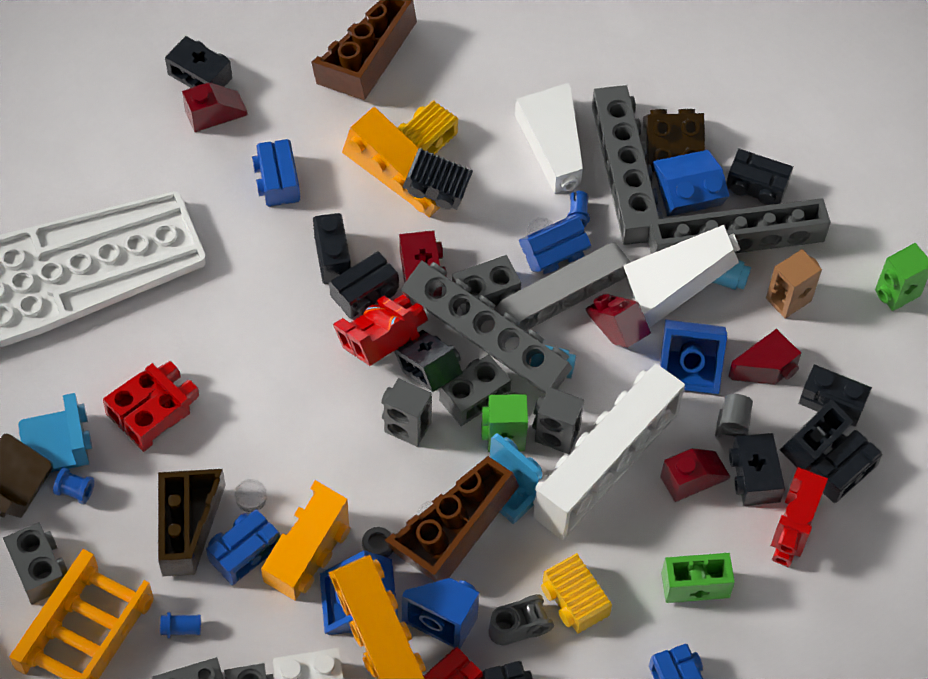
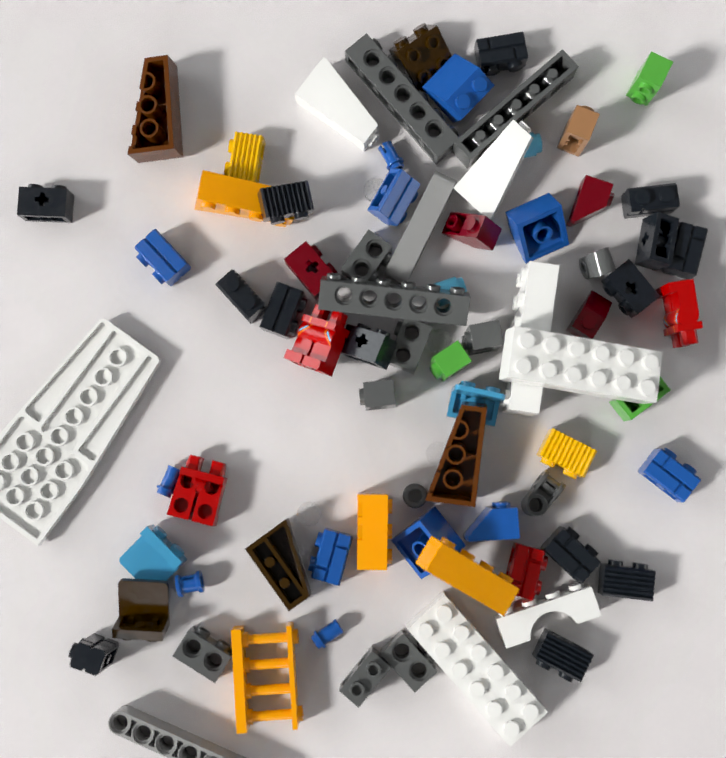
camera: 25 degrees left, 25 degrees up
(122, 377) = (168, 482): none -> blue pin
(212, 105) = (78, 230): dark red slope -> none
(642, 486) = (580, 365): none -> white brick

